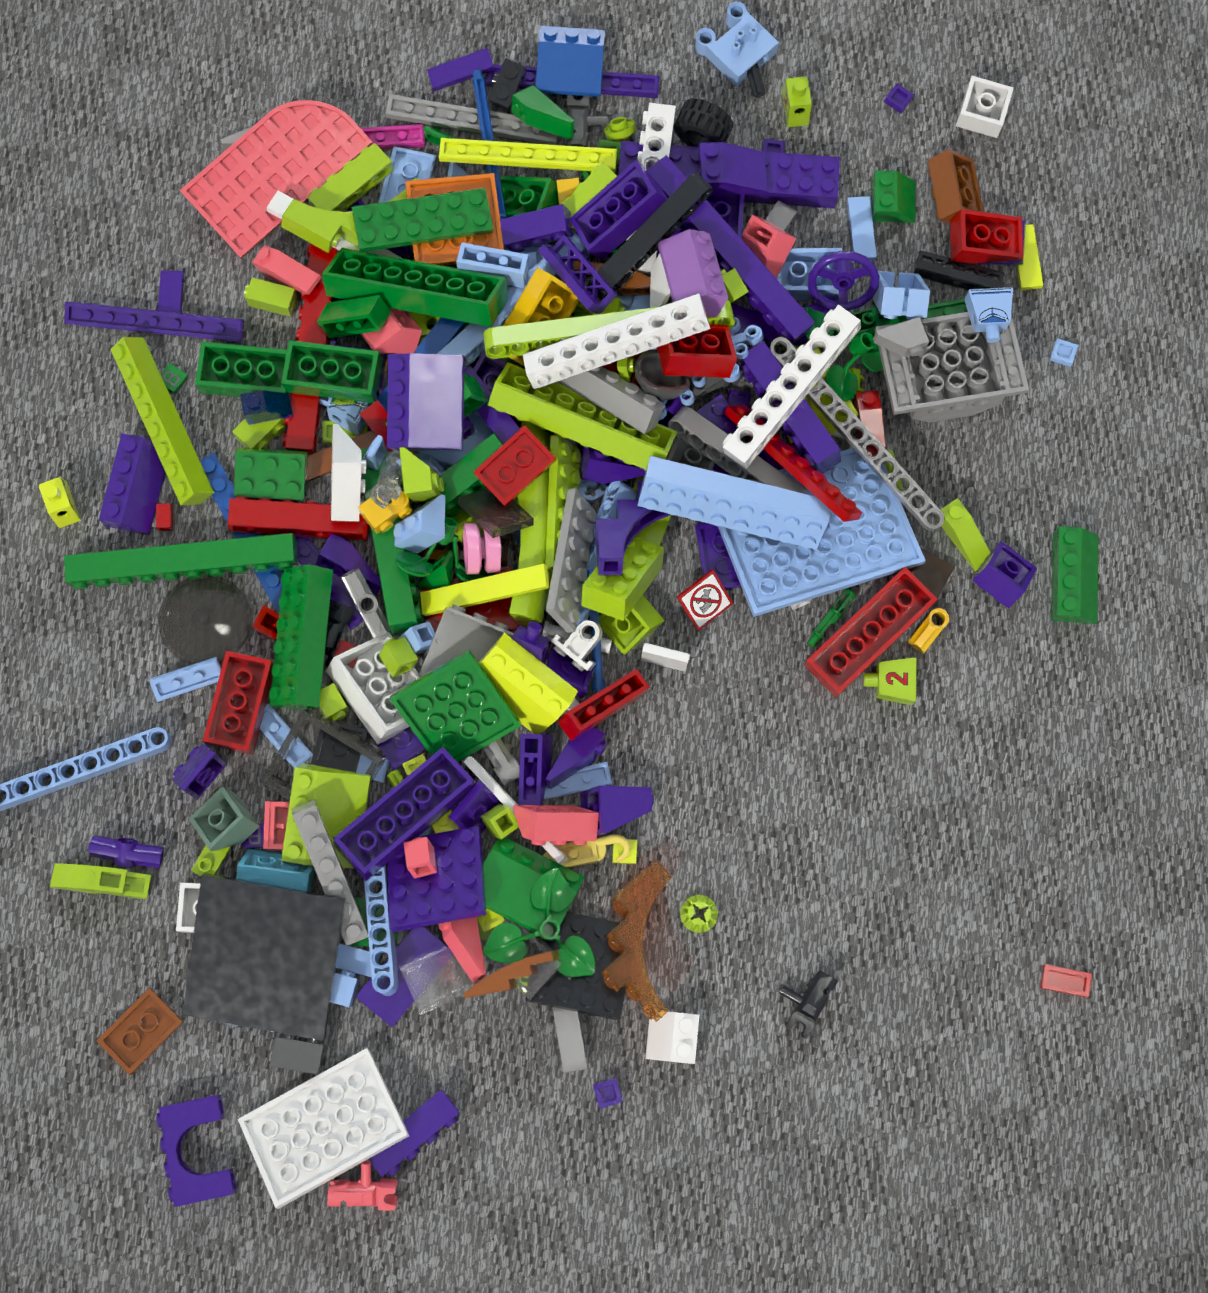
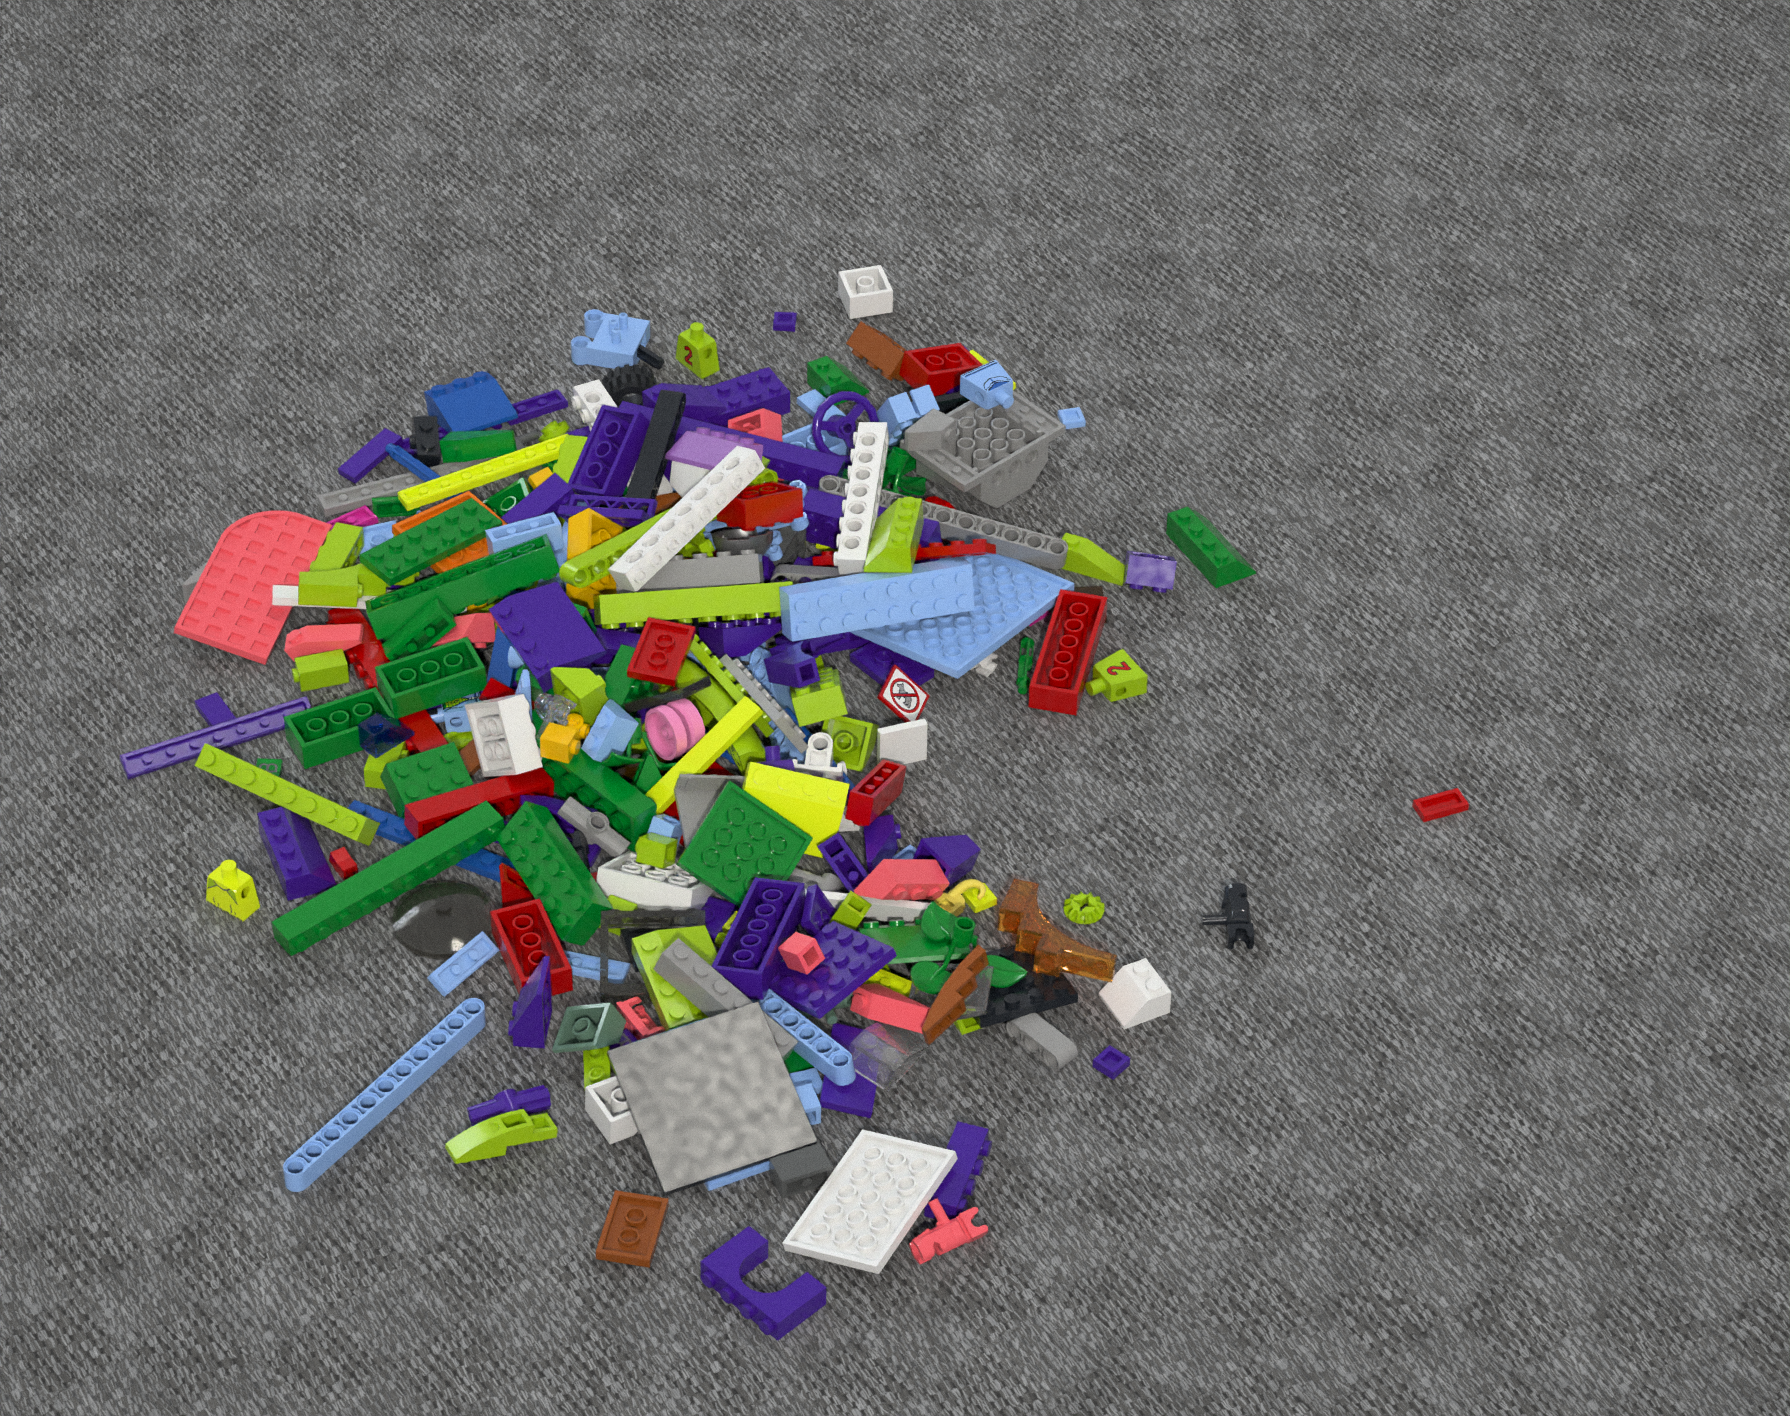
camera: 30 degrees left, 35 degrees down
(783, 455) = (896, 537): none -> lime slope
(928, 630) = (1117, 630): yellow piece -> none

